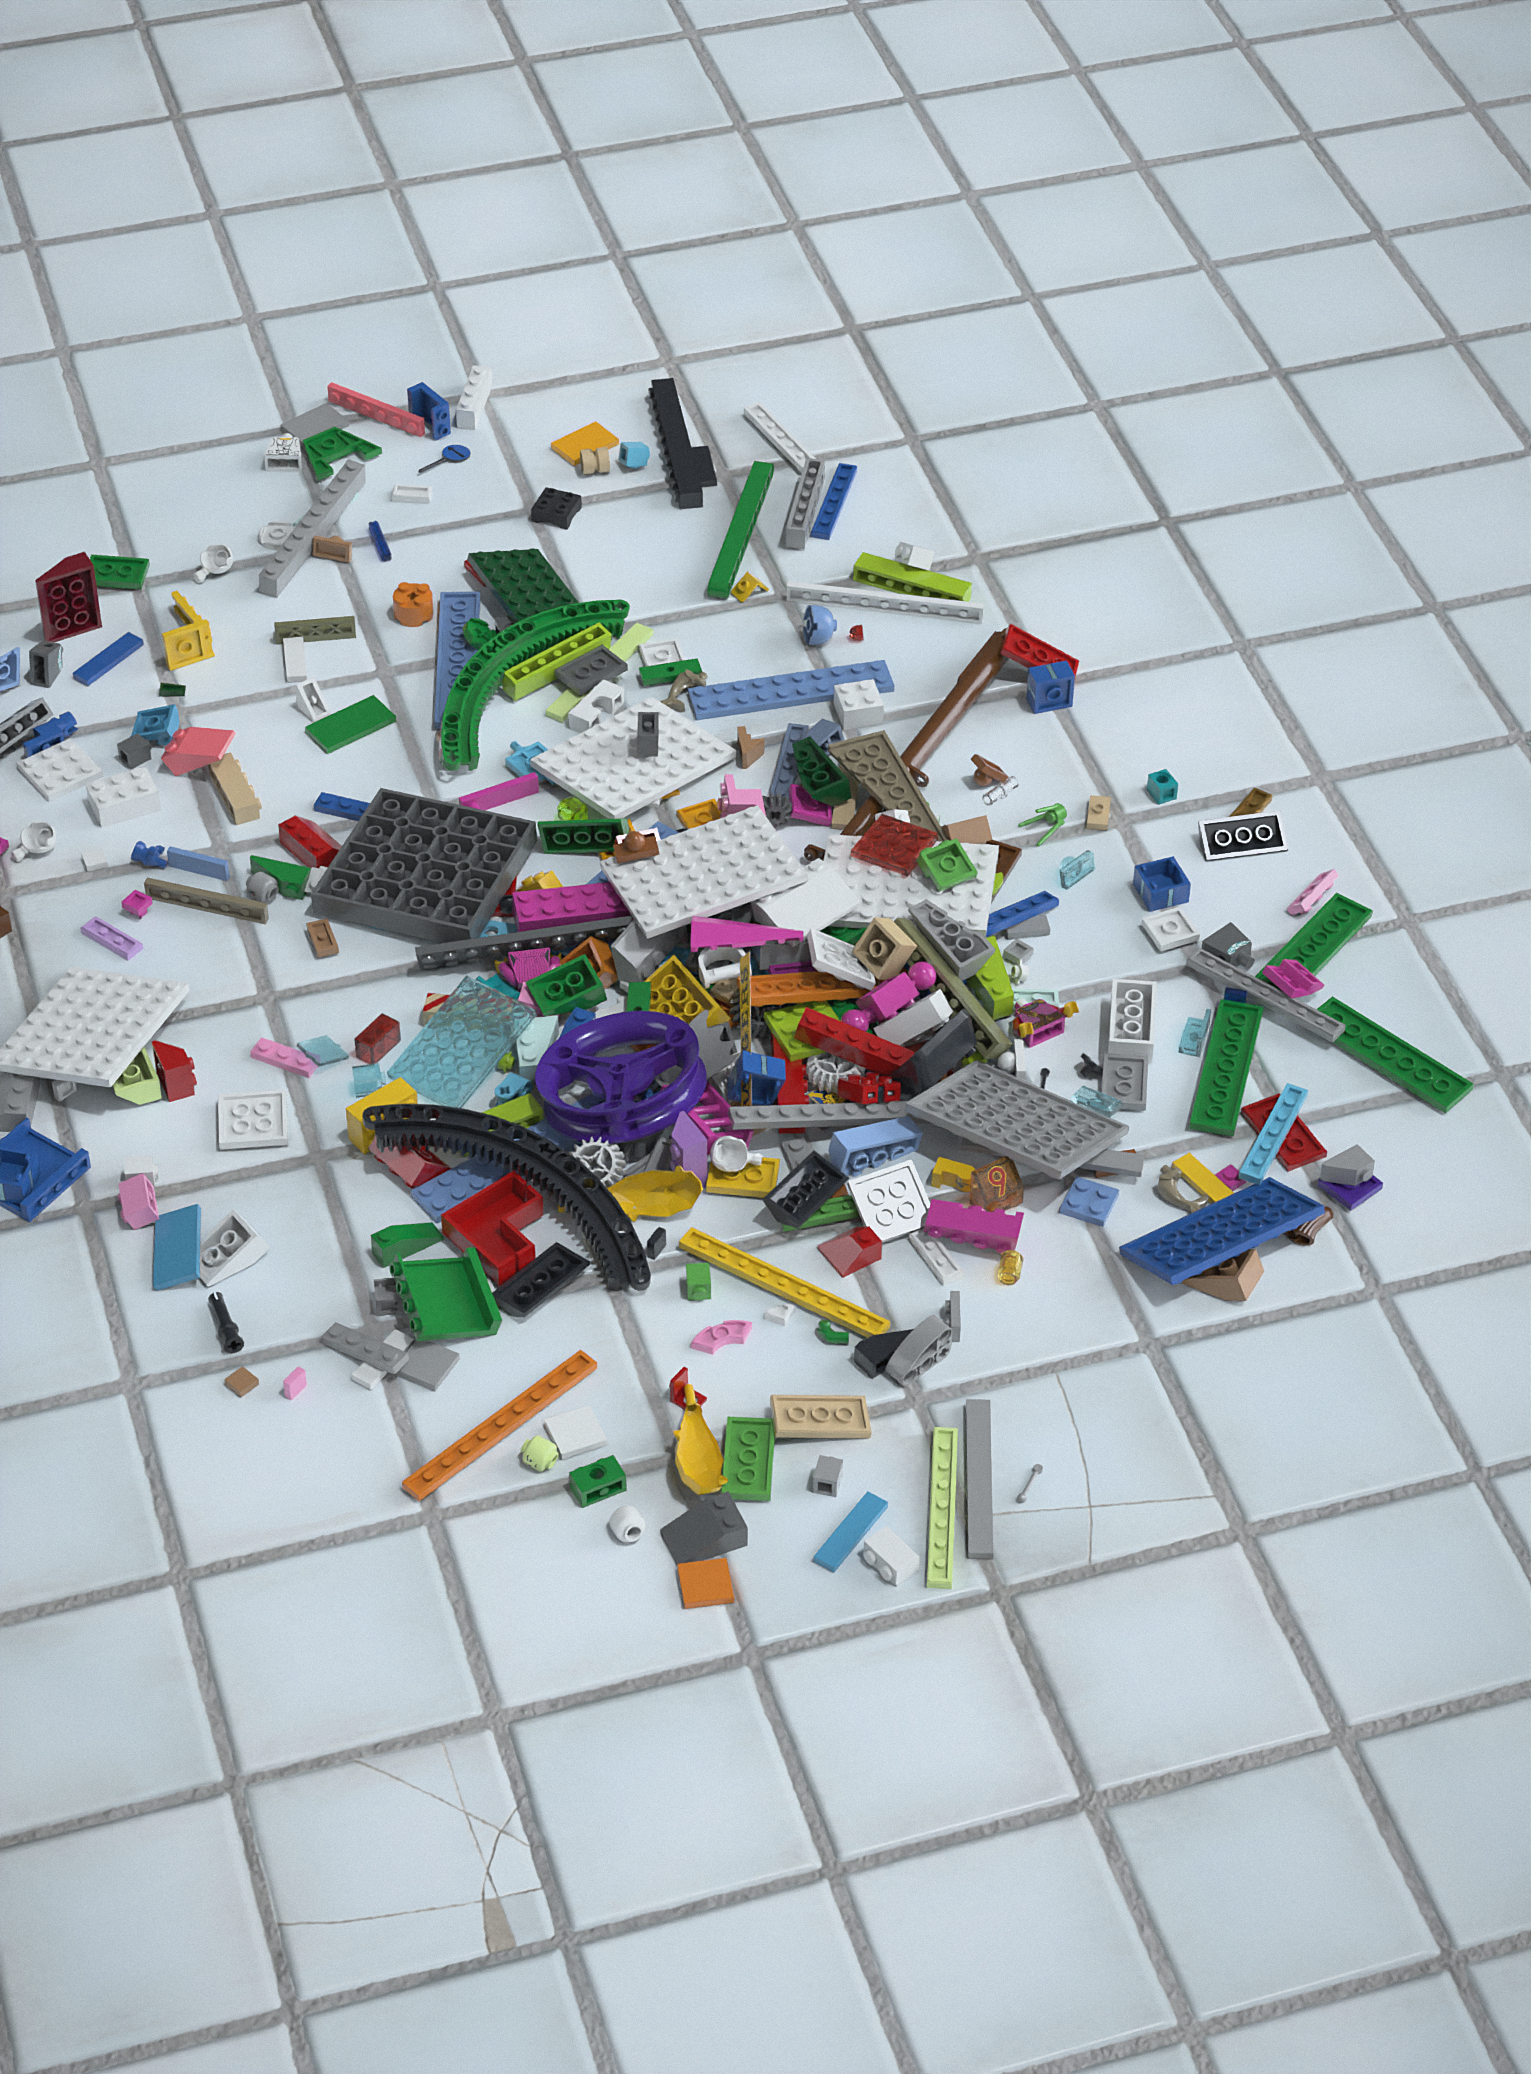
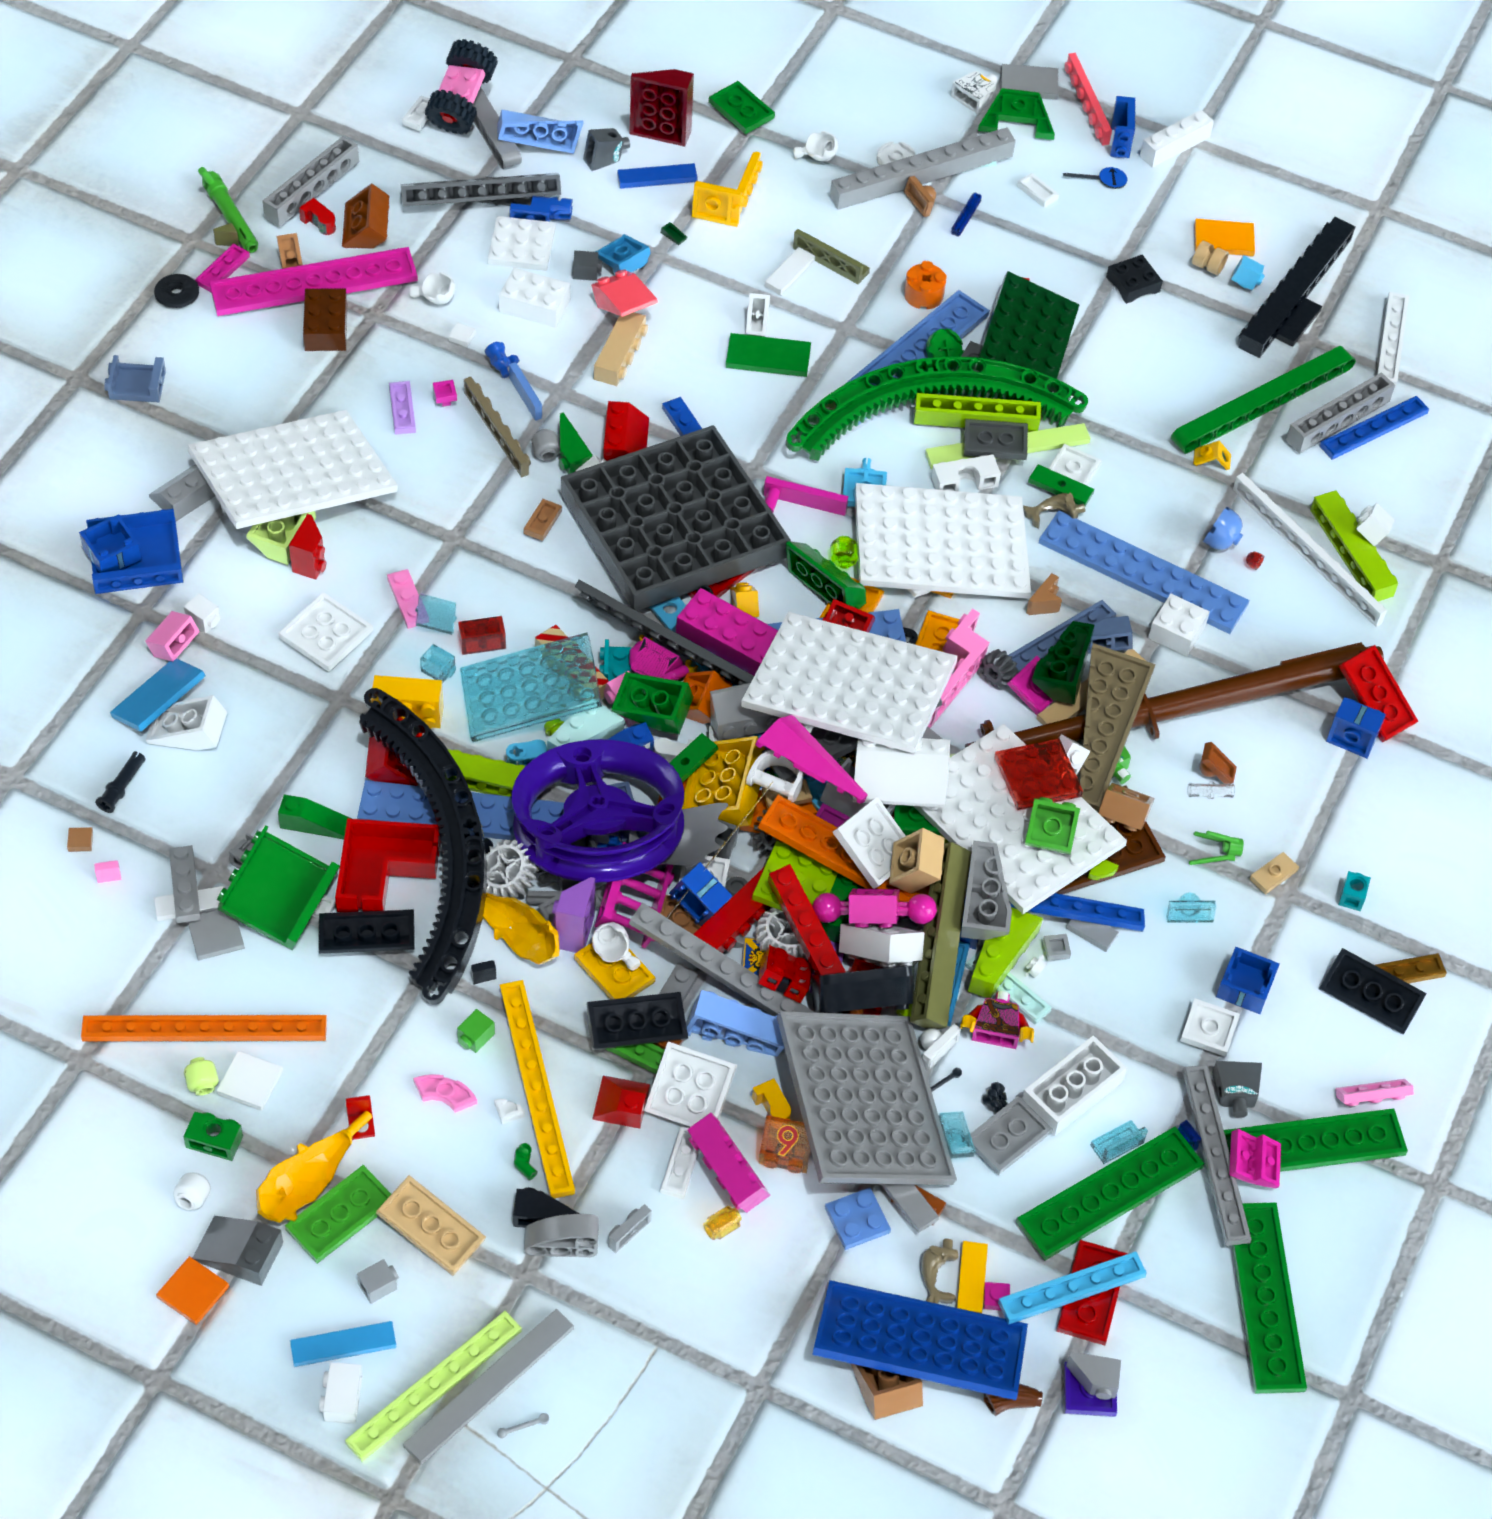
camera: 40 degrees right, 10 degrees up
(635, 847) = (818, 620): dark orange tile -> none
(647, 734) = (962, 527): dark grey brick -> none

